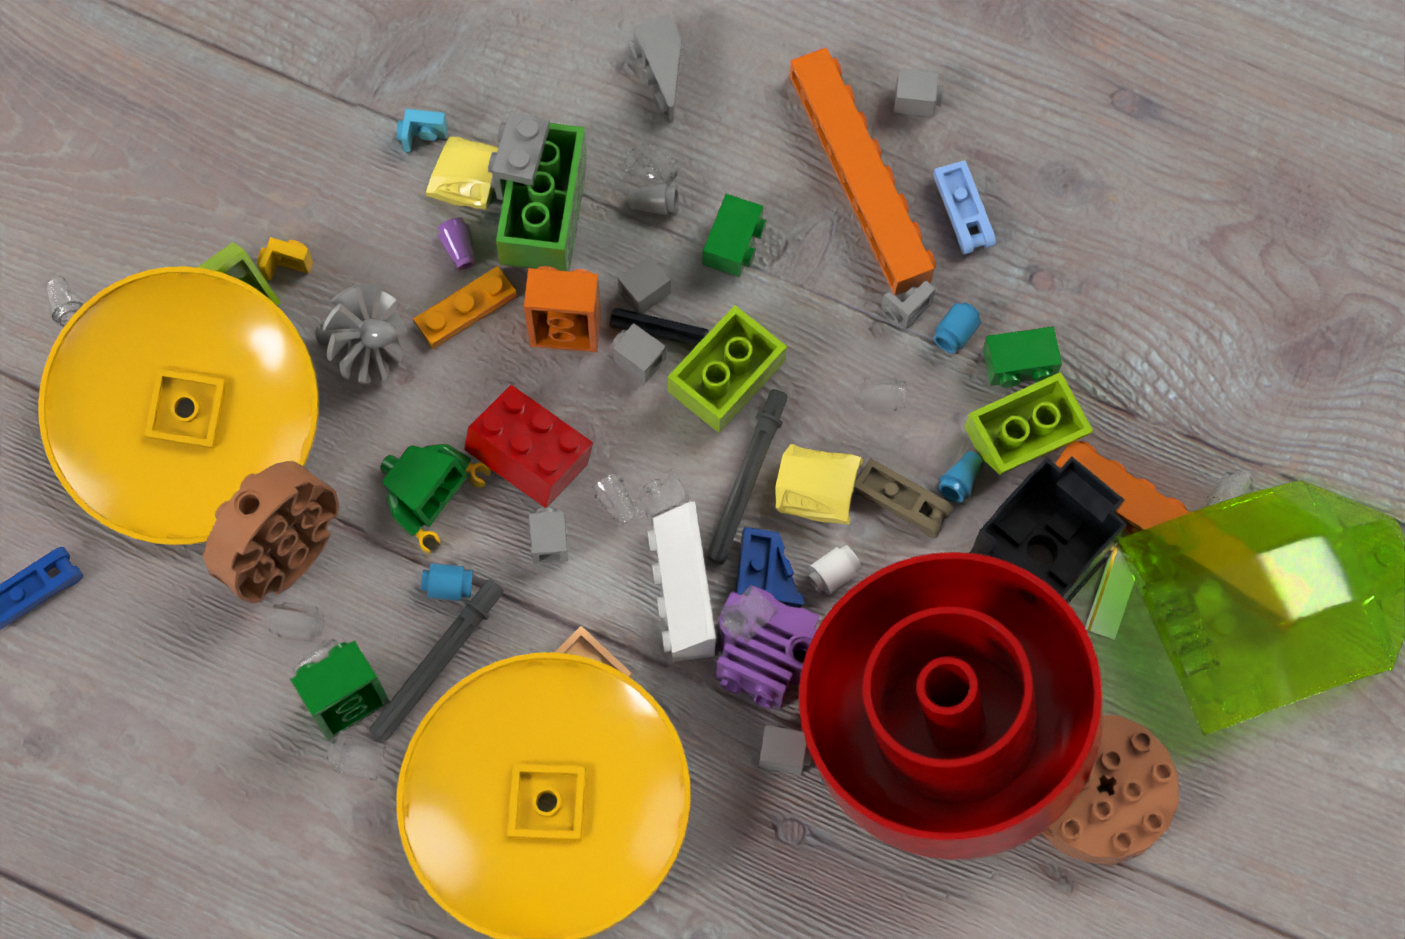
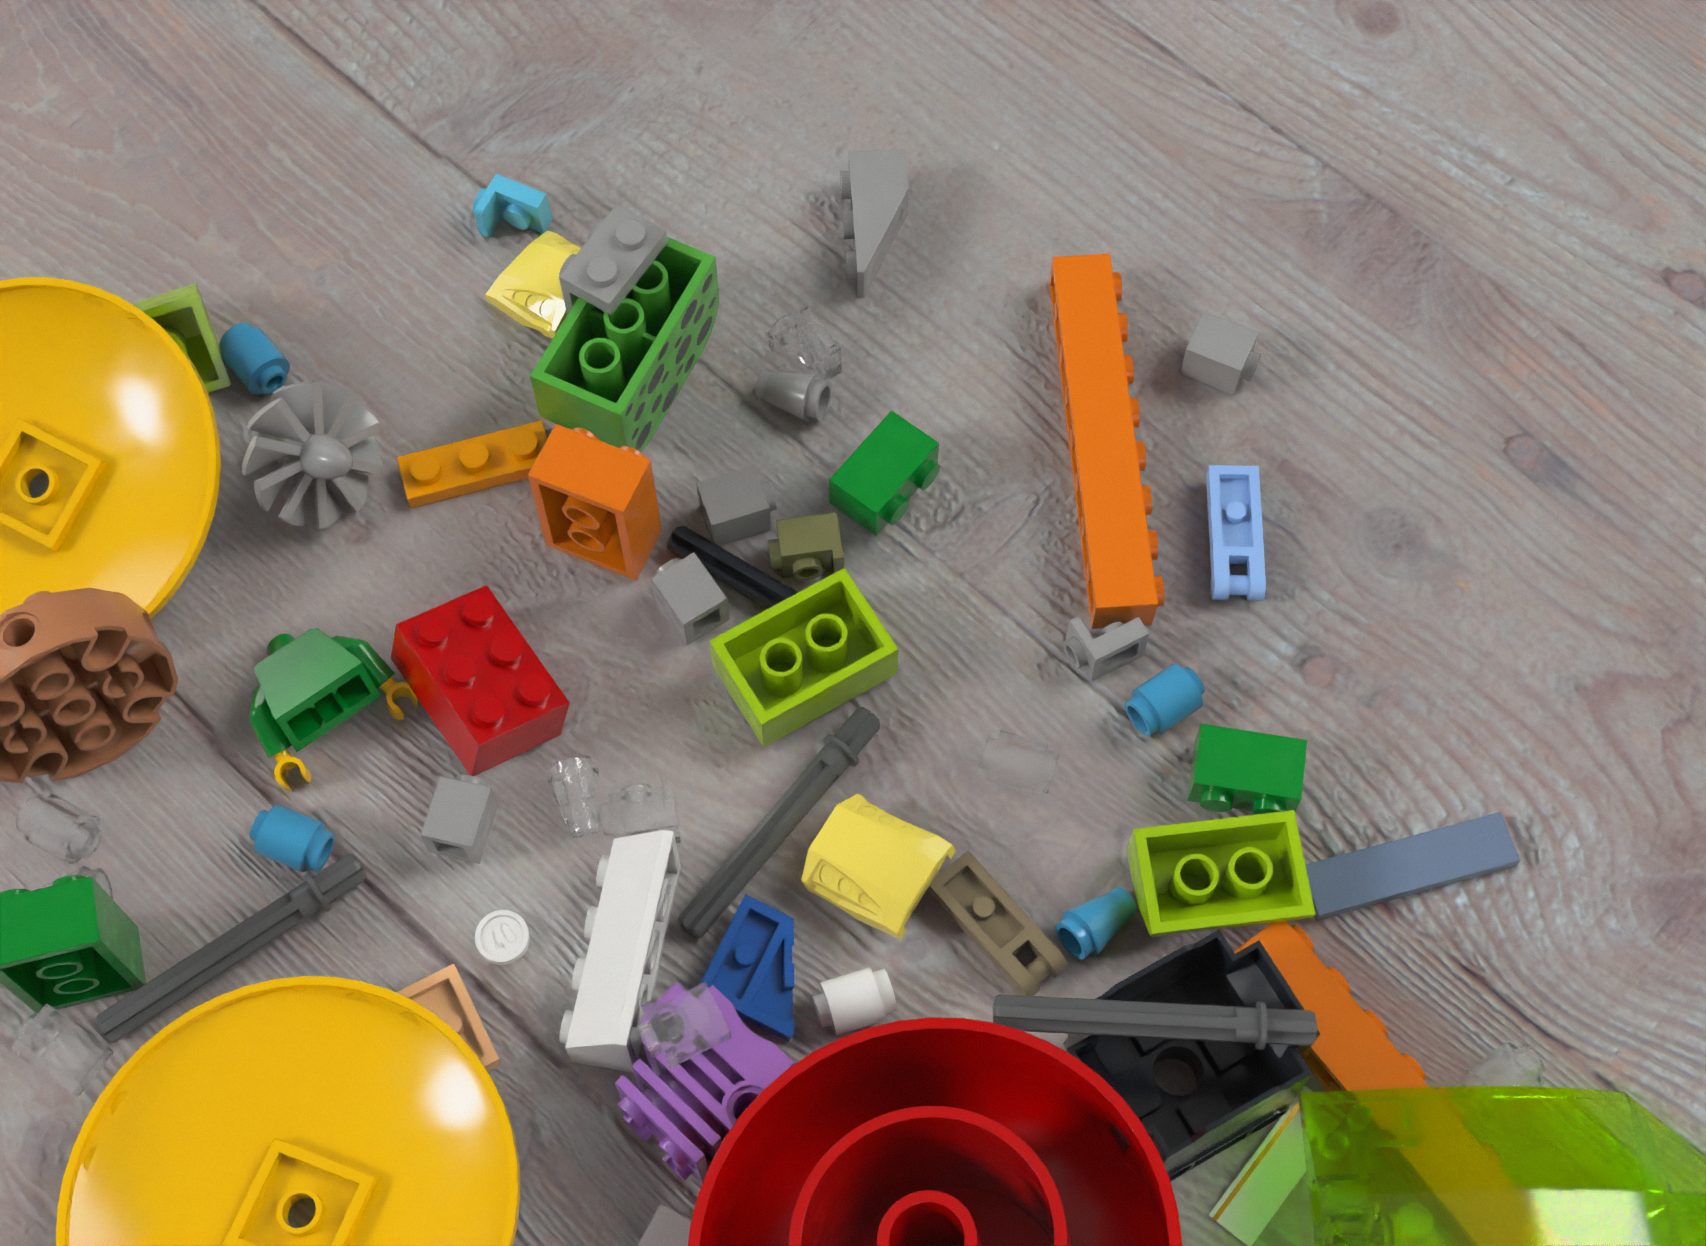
camera: 20 degrees right, 5 degrees down
(287, 254) = (269, 318): yellow bracket -> none
(292, 281) = (254, 359): none -> dark azure brick
(457, 241) = (500, 372): medium lavender cone -> none
(601, 601) = (502, 937): none -> white piece
(702, 297) = (807, 546): none -> olive brick
(1029, 521) = (1157, 1020): none -> dark grey axle
(1138, 382) = (1410, 865): none -> sand blue tile

